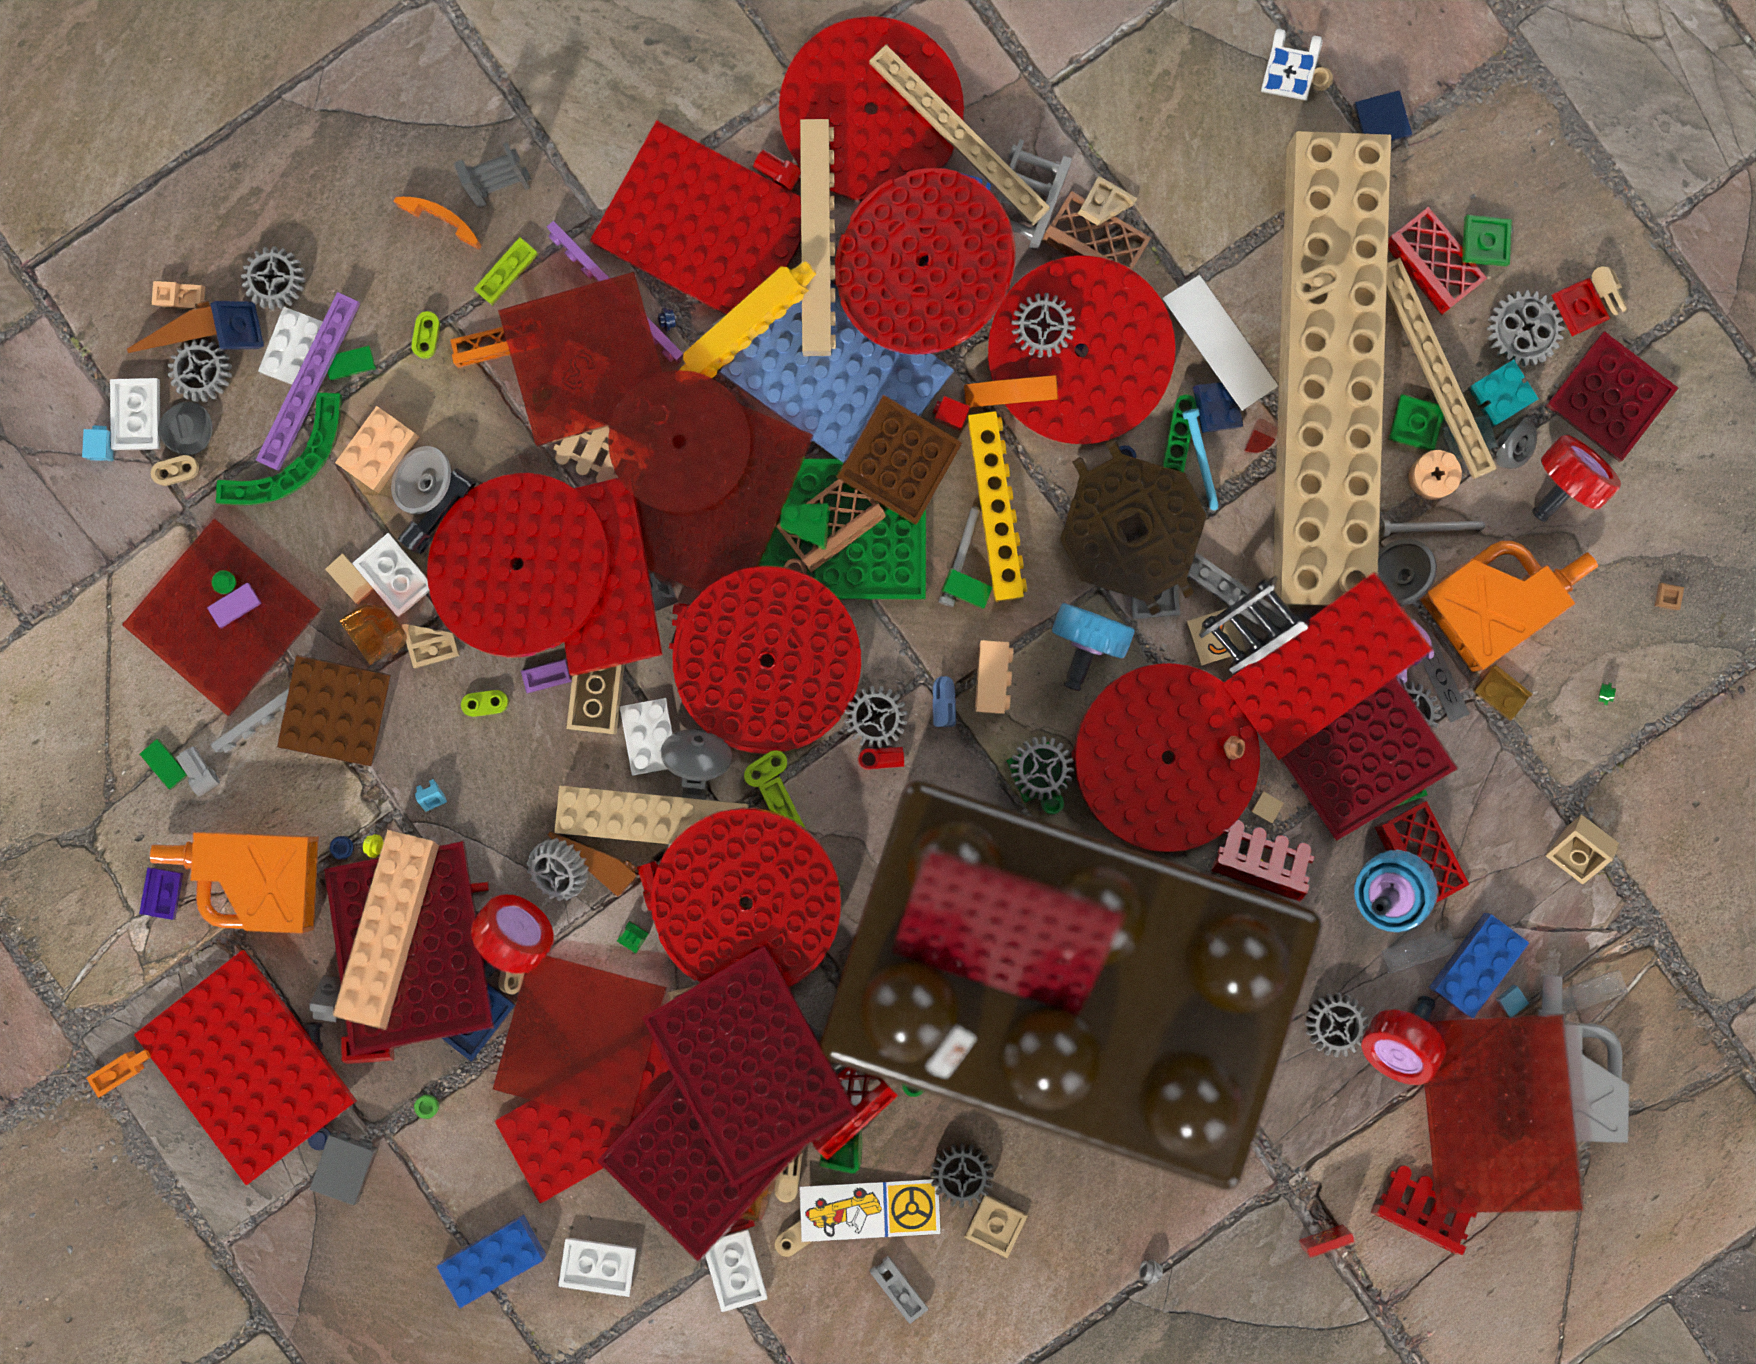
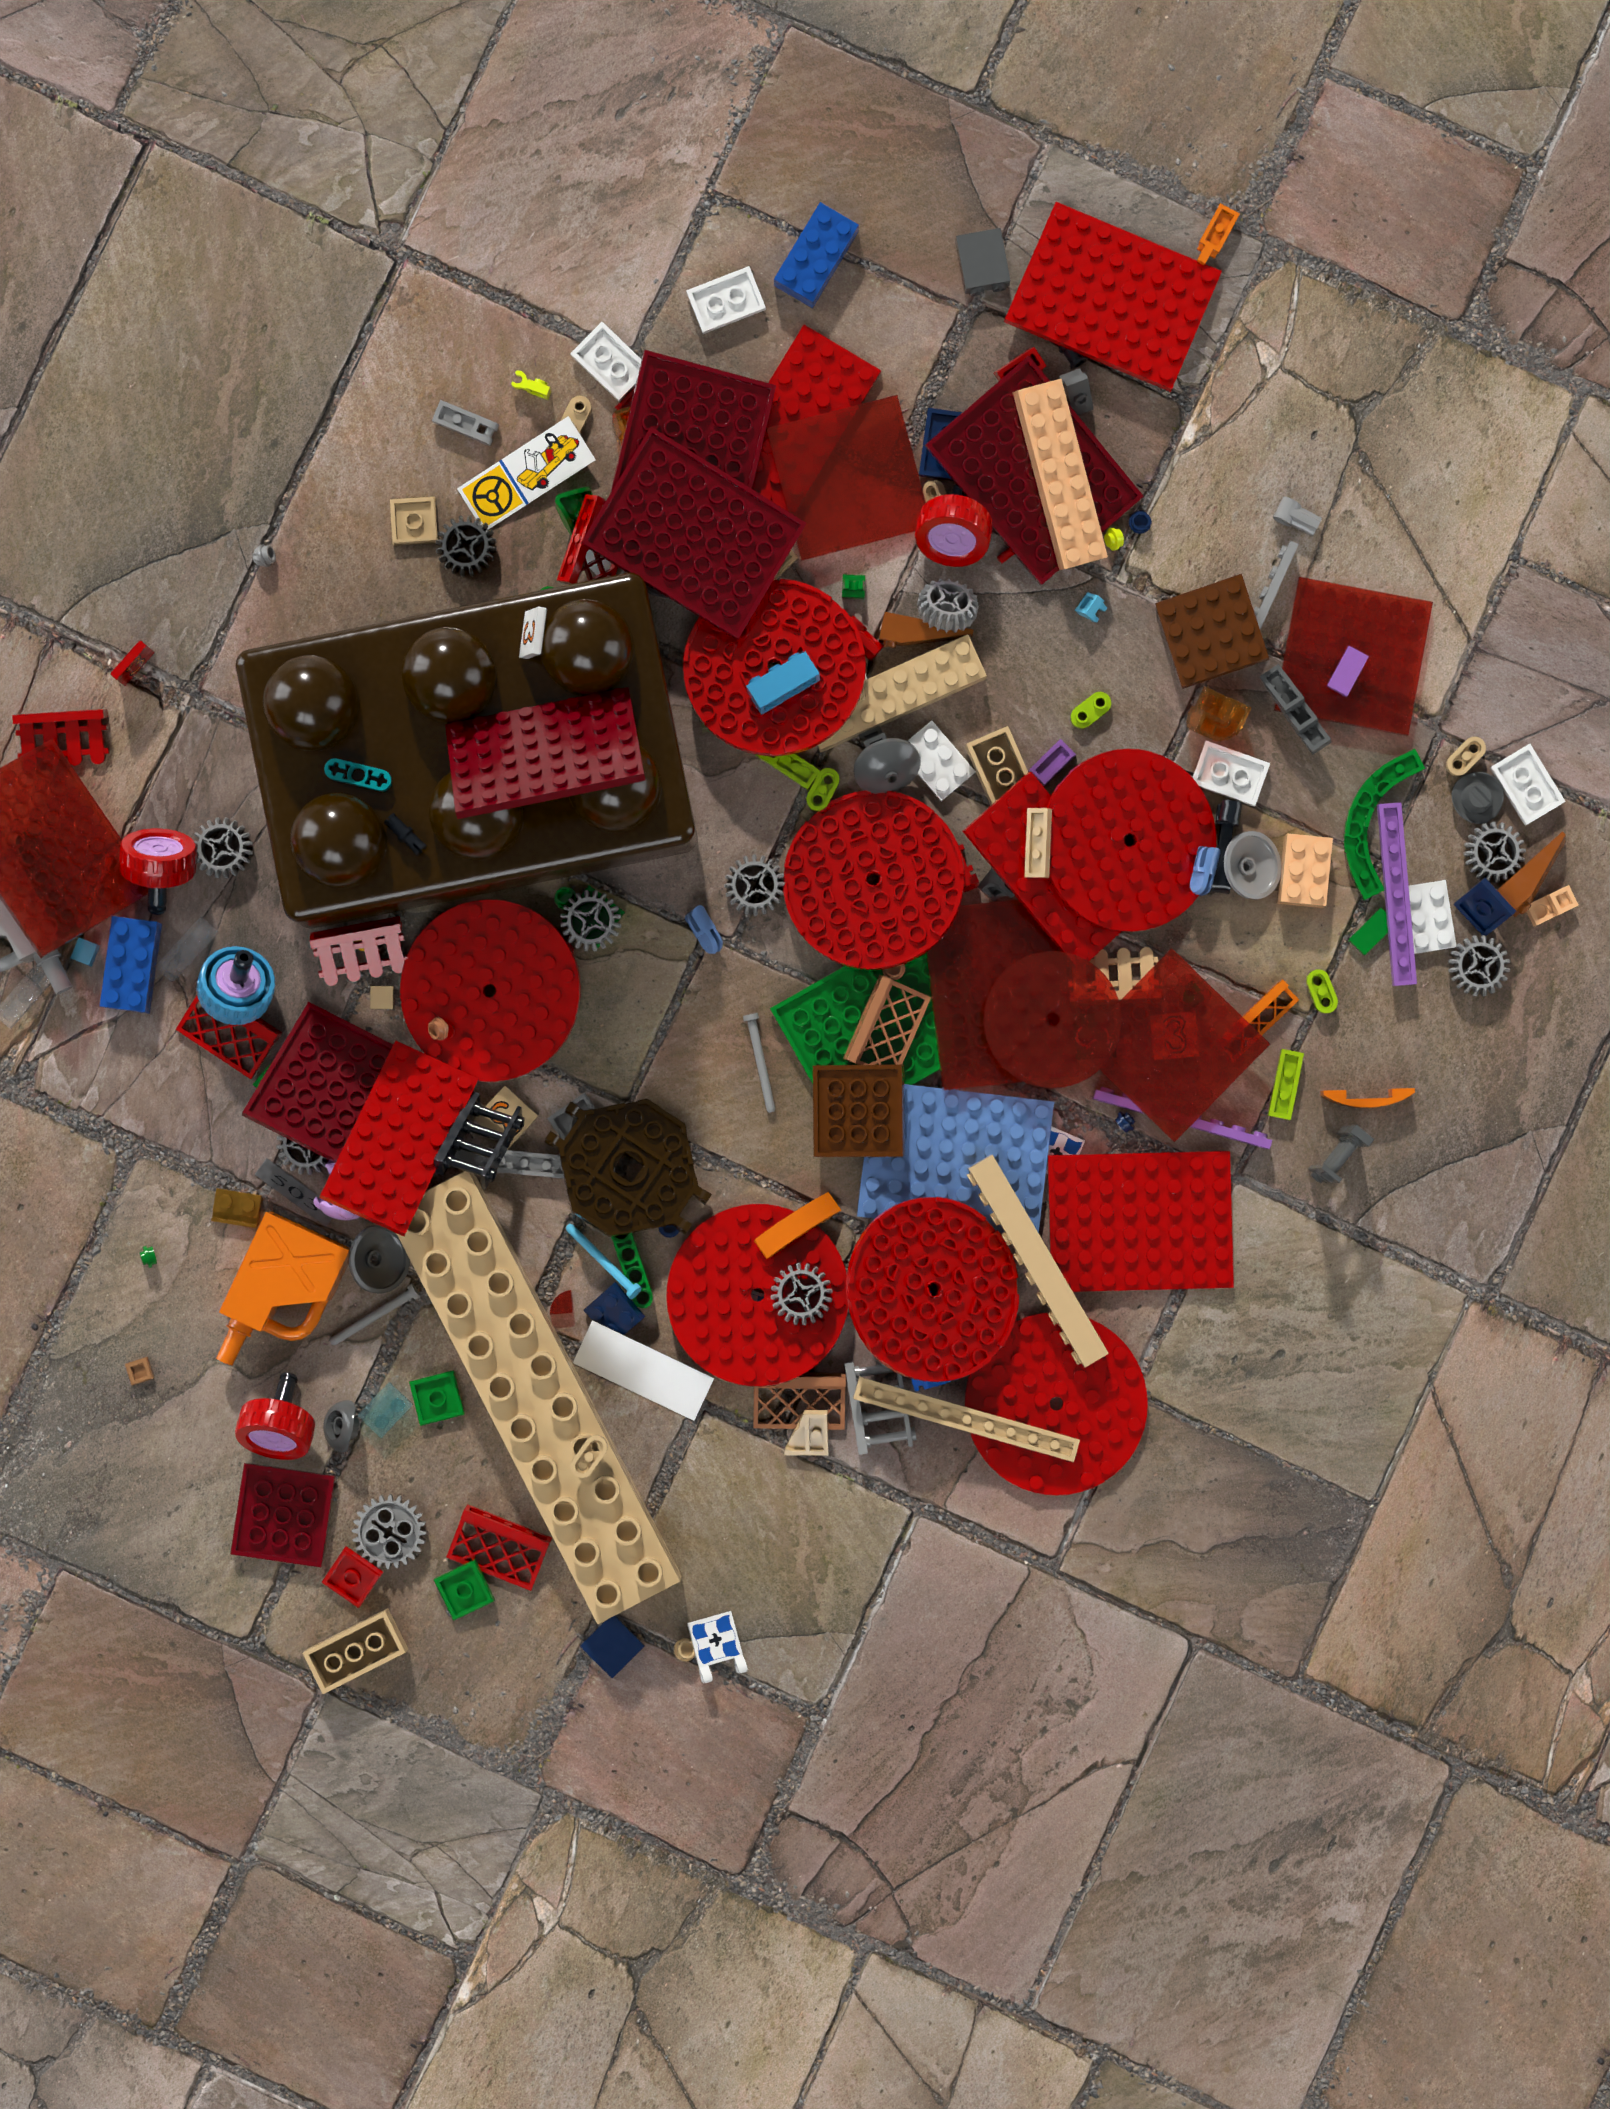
camera: 150 degrees right, 0 degrees up
(97, 444) = (1543, 741): medium azure brick -> none
(161, 893) = (1267, 399): dark purple plate -> none
(163, 764) = (1329, 507): green tile -> none
(223, 582) = (1367, 685): green plate -> none
(263, 875) = (1192, 462): orange piece -> none
(300, 597) = (1295, 709): none -> dark grey slope
(319, 1139) = (1016, 273): dark blue plate -> none
(349, 578) = (1265, 749): tan tile -> none
(426, 1106) = (944, 350): bright green tile -> none
(429, 645) = (1165, 732): tan wing -> none
(466, 499) = (1204, 870): none -> medium blue arm
(600, 604) = (1038, 842): none -> tan plate
(746, 882) = (782, 682): none -> dark azure brick
(748, 320) = (1054, 1154): yellow hinge -> none
(781, 172) = (1099, 1303): red piece -> none
(787, 1183) = (607, 458): tan arm -> none
(807, 522) = (906, 1013): green wing -> none
(815, 1284) = (537, 387): none -> neon yellow plate
(884, 758) = (728, 855): red piece -> none
(951, 413) = (838, 1178): red brick -> none
(967, 588) = (739, 1037): green tile -> none
(978, 425) = (709, 1053): yellow brick -> none
(993, 677) = (674, 972): light nougat brick -> none
(1091, 636) = (612, 1055): dark azure wheel -> none
(1172, 933) = (405, 834): none -> black pin
(1195, 1012) = (342, 764): none -> teal beam
(1438, 371) = (446, 1451): tan plate -> none
(1444, 465) = (396, 1373): light nougat brick -> none
(1504, 392) = (377, 1463): teal piece -> none
(1582, 849) = (96, 1112): tan slope -> none
(1607, 283) = (336, 1606): tan arm -> none
(1614, 239) = (355, 1651): none -> tan brick

